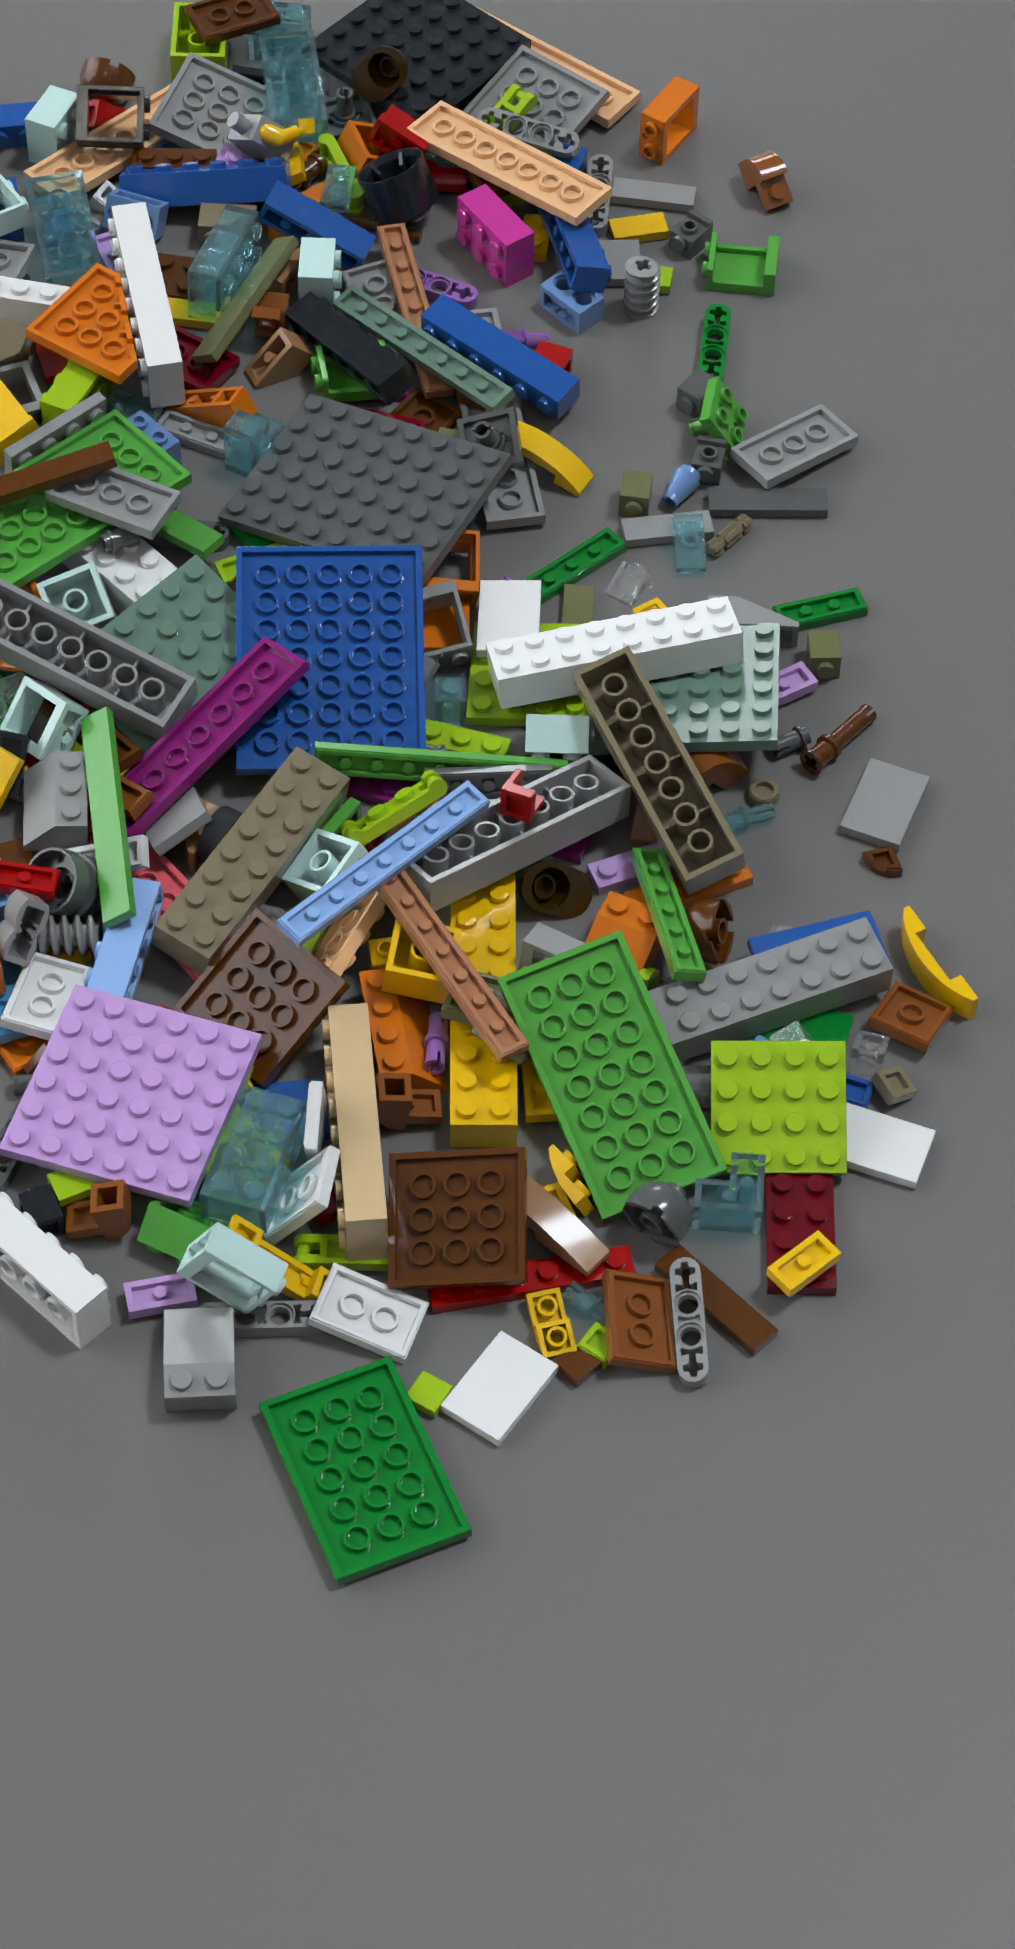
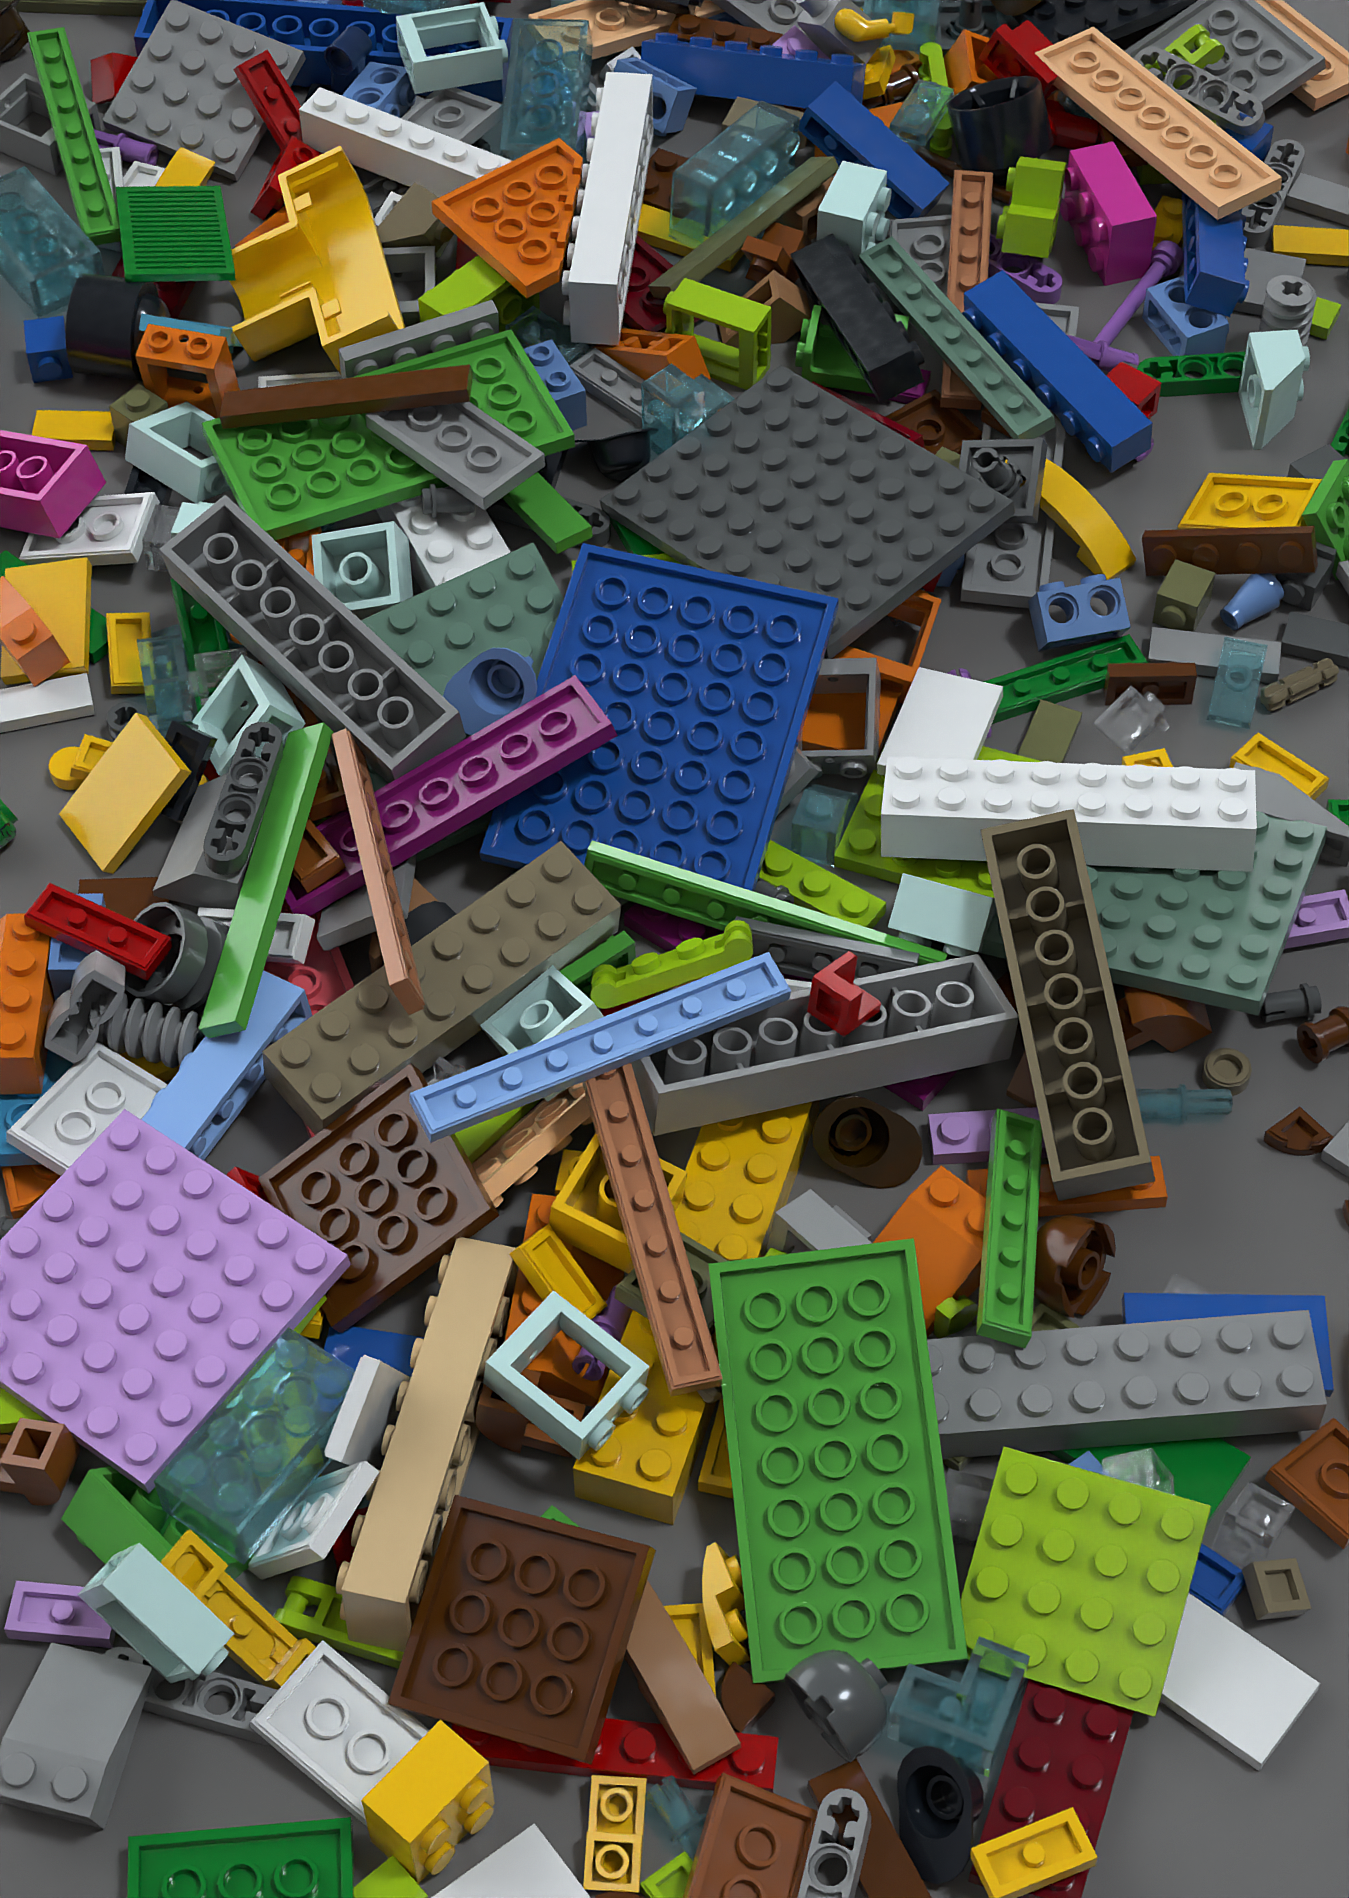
camera: 20 degrees right, 0 degrees up
(70, 768) = (243, 797): none -> dark grey beam
(184, 792) = (378, 873): none -> nougat tile
(210, 657) = (491, 687): none -> medium blue piece
(218, 482) = (622, 454): none -> black piece
(259, 362) = (751, 319): none -> lime window
(399, 1016) = (552, 1267): none -> yellow tile
(419, 1090) = (529, 1339): none -> light aqua window
(438, 1331) = (430, 1802): none -> yellow brick
(443, 248) = (1034, 210): none -> lime brick
(543, 261) = (1165, 261): none -> medium lavender piece
(574, 525) = (1081, 621): none -> medium blue brick
(602, 1229) = (742, 1700): none -> reddish brown tile
(634, 325) = (1209, 365): none -> green beam
(645, 552) = (1169, 682): none -> reddish brown plate
(646, 333) = (1272, 382): none -> light aqua slope
(658, 455) = (1232, 550): none -> reddish brown plate
(660, 424) = (1249, 502): none -> yellow tile
(721, 585) = (1271, 757): none -> yellow tile
(738, 1256) = (937, 1811): none -> black piece
(820, 820) = (1298, 1134): none -> reddish brown tile

